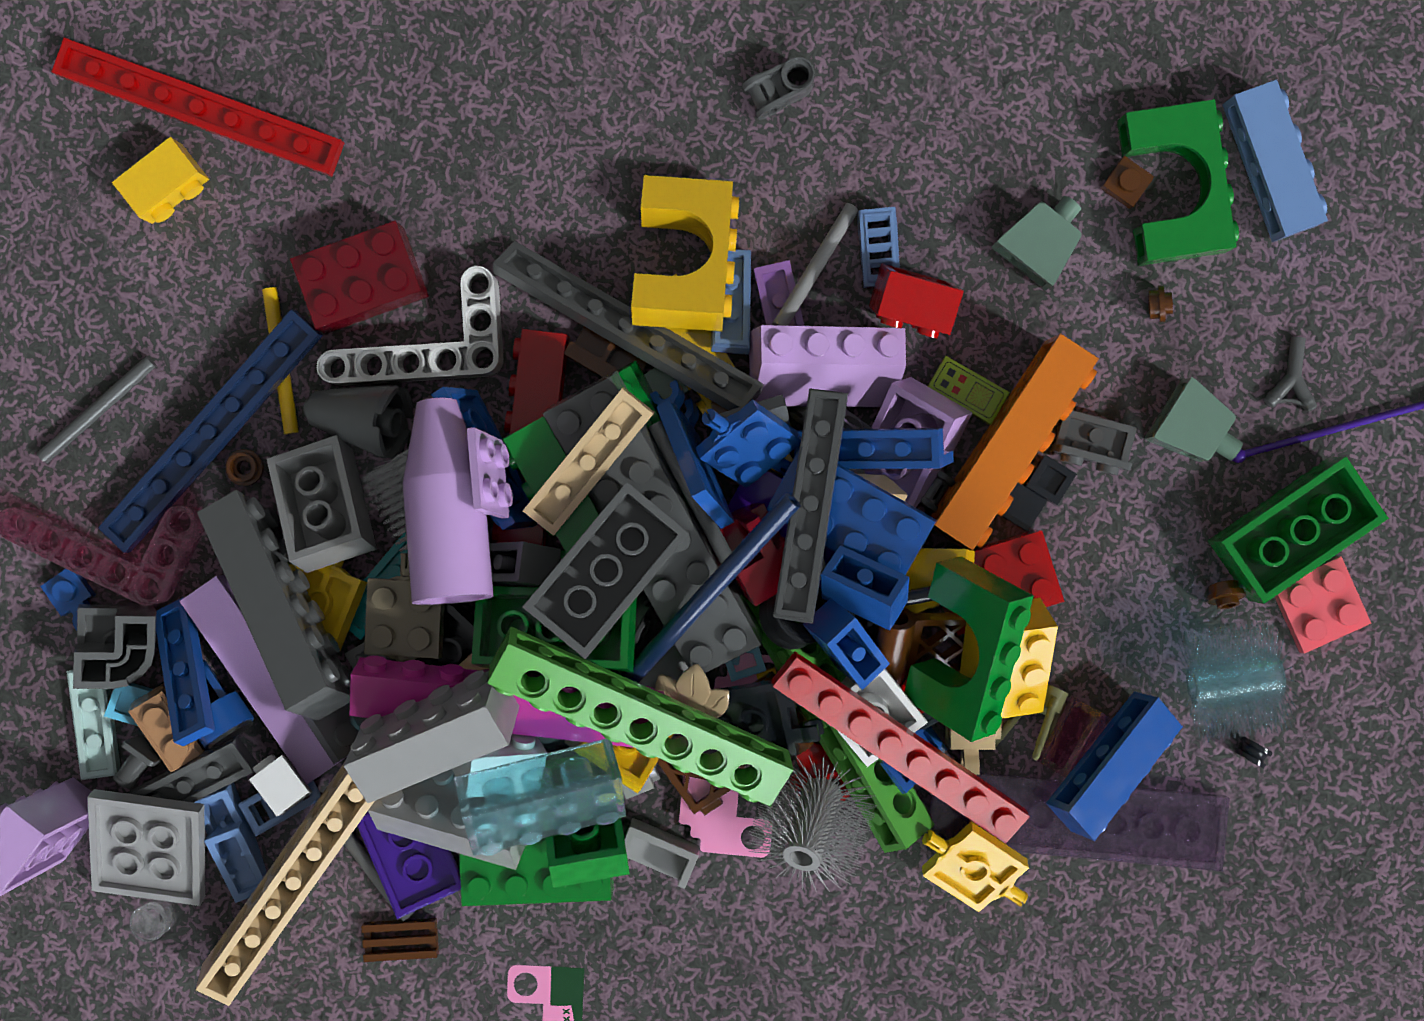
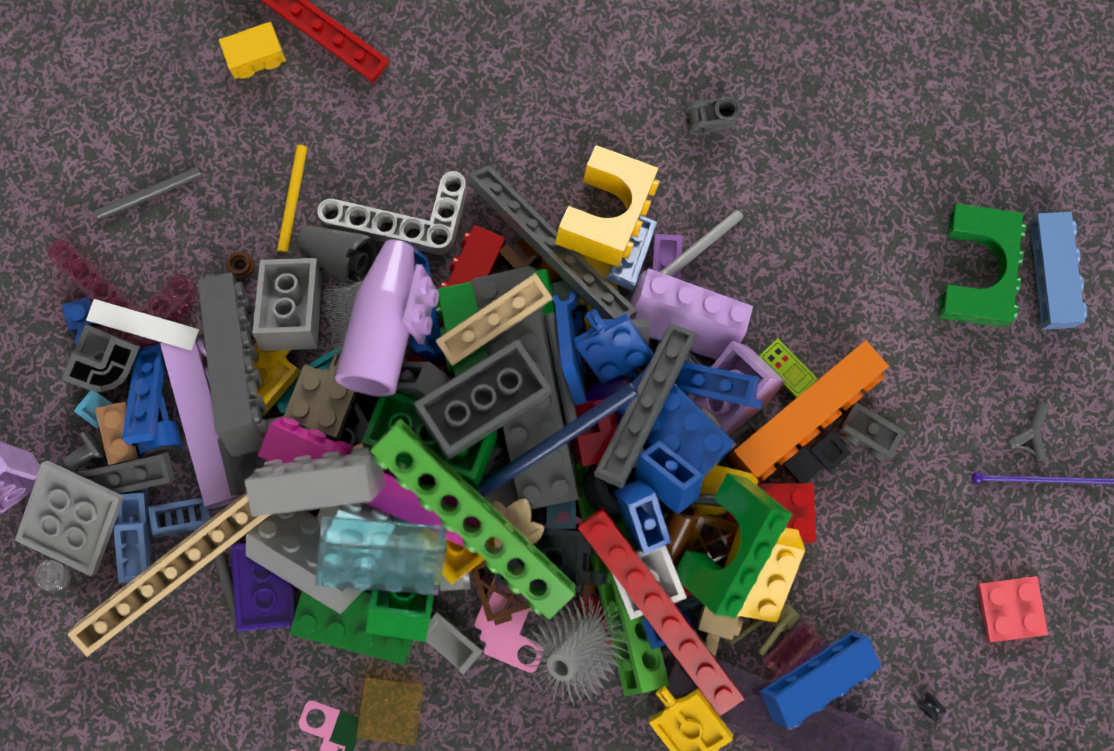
camera: 15 degrees right, 10 degrees down
(93, 732) = (61, 419): light aqua tile -> none
(149, 585) = (142, 324): none -> white sticker
(210, 431) = (224, 231): dark blue plate -> none
(279, 784) = (186, 497): white brick -> none
(359, 277) = (369, 156): dark red brick -> none
(400, 954) = (207, 646): reddish brown tile -> none
(611, 951) = (390, 711): none -> clear yellow tile
(874, 215) = (753, 223): medium blue slope -> none
(915, 300) = (766, 287): red brick -> none
(1042, 241) = (870, 276): sand green torso -> none
(1127, 182) = (945, 255): reddish brown plate -> none
(1160, 303) = (946, 347): reddish brown plate -> none
(1195, 424) = (950, 443): sand green torso -> none
(1225, 594) = (940, 577): reddish brown plate -> none
(1242, 680) = (930, 640): clear light blue piece -> none
(1298, 529) = (1007, 543): green brick -> none

